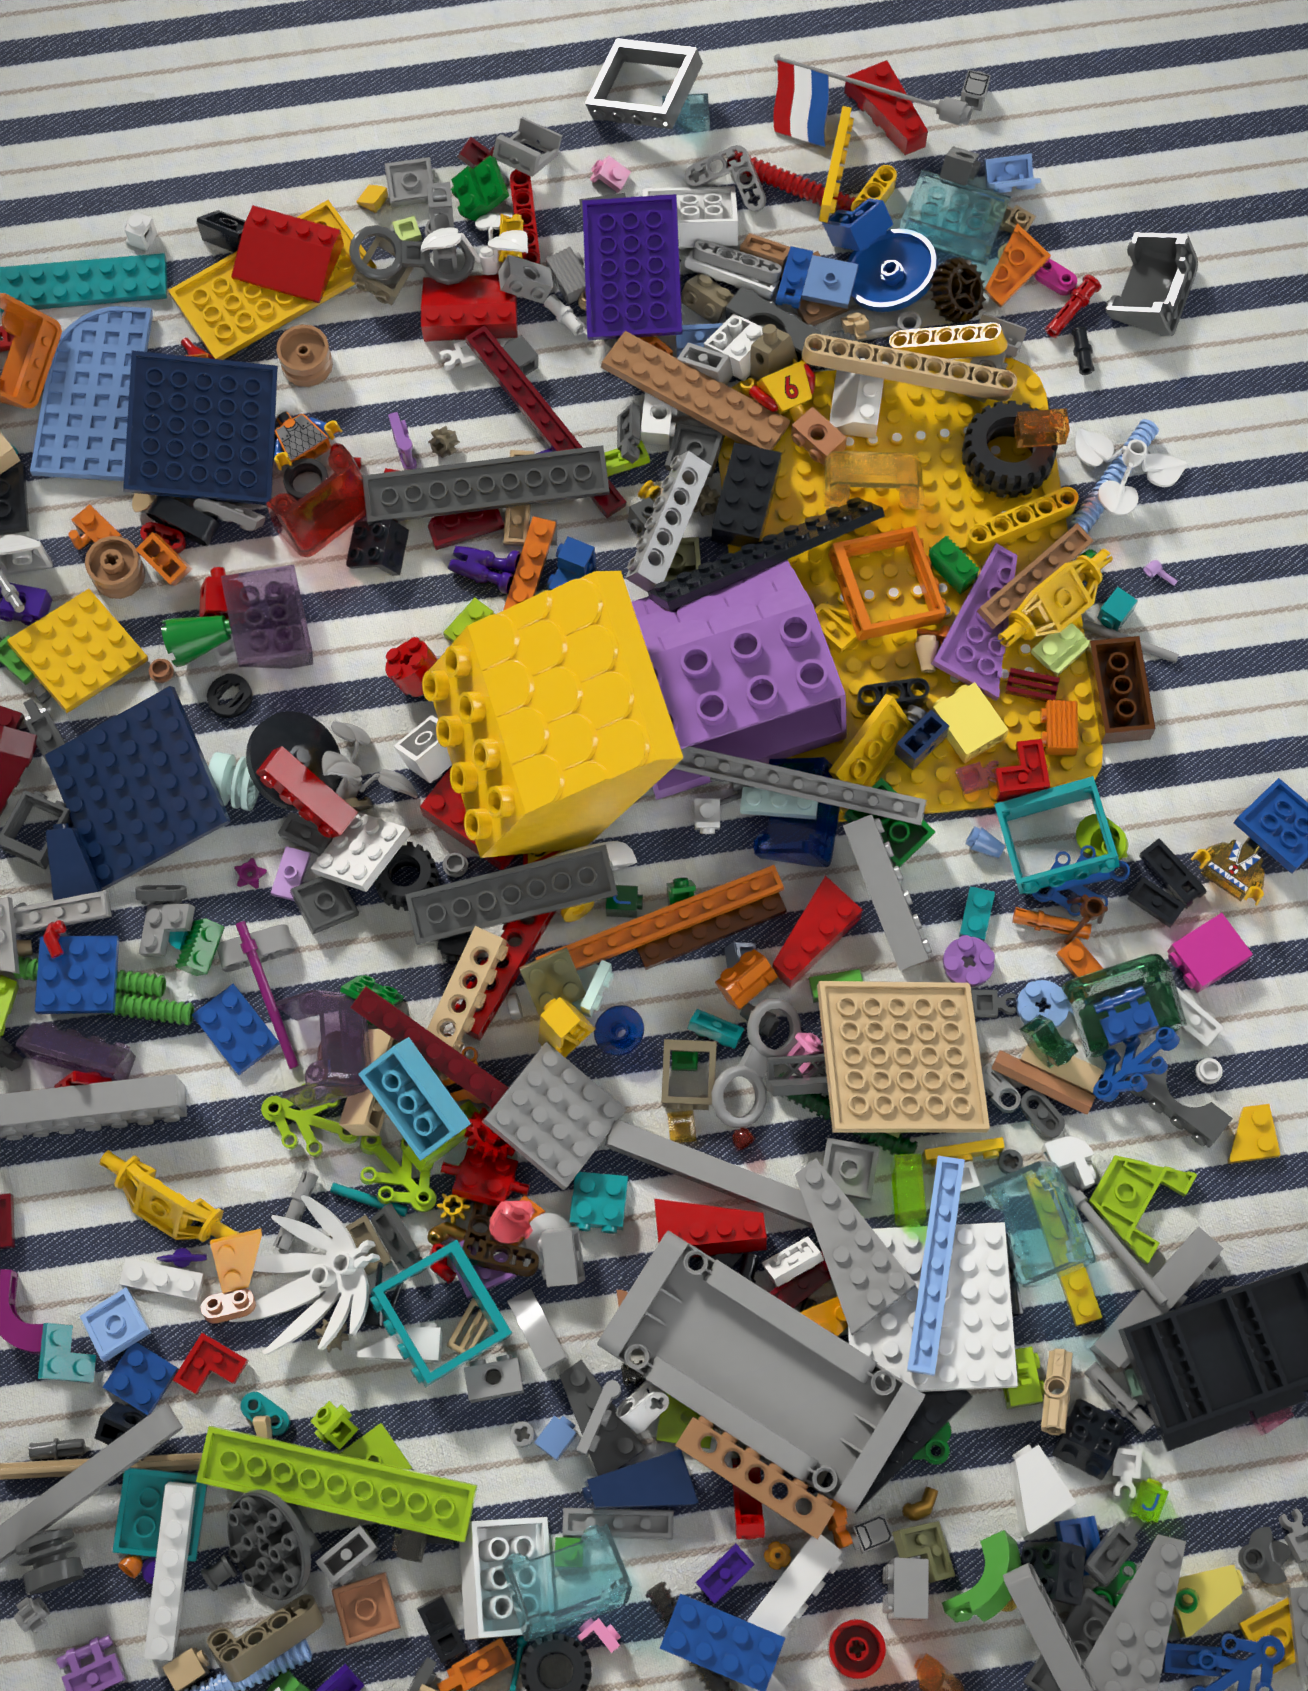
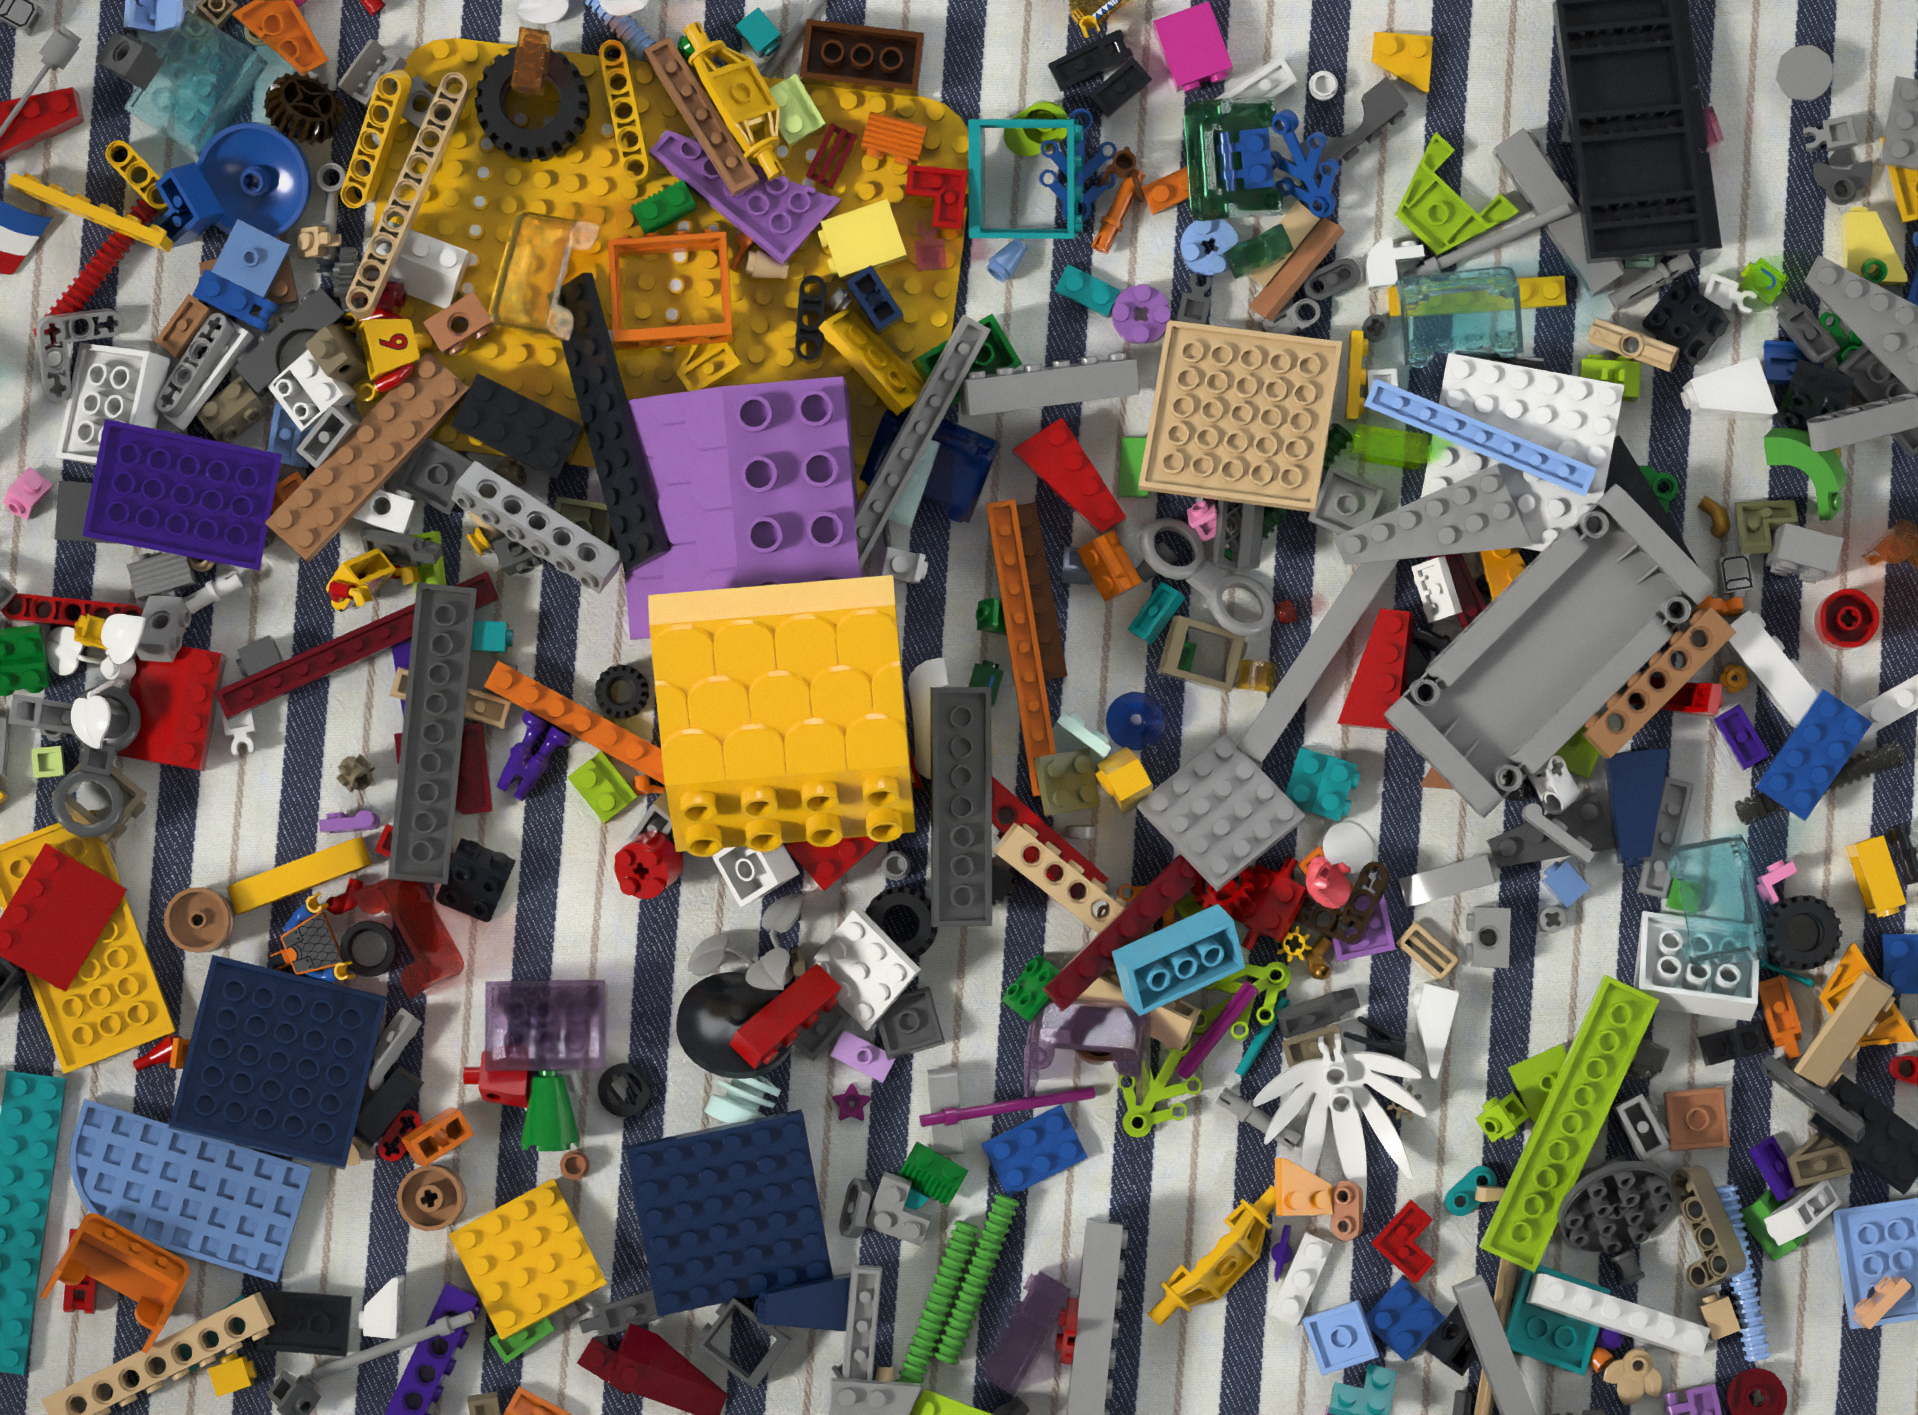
camera: 75 degrees left, 15 degrees up
(51, 938) = (893, 1337): red arm -> none
(79, 979) = (937, 1317): blue plate -> none
(92, 526) = (370, 1215): orange plate -> none
(116, 1602) = (1634, 1381): none -> tan plate
(355, 421) = (299, 875): none -> yellow beam
(365, 1156) = (1216, 1030): none -> magenta axle
(441, 1267) = (1350, 973): red arm -> none
(478, 1291) = (1395, 934): teal window -> none
(562, 1256) = (1376, 836): light grey brick -> none
(574, 516) = (491, 637): none -> teal brick
(574, 561) = (569, 655): blue brick -> none
(598, 410) = (363, 576): none -> torso
(826, 380) = (392, 297): none -> dark red bracket

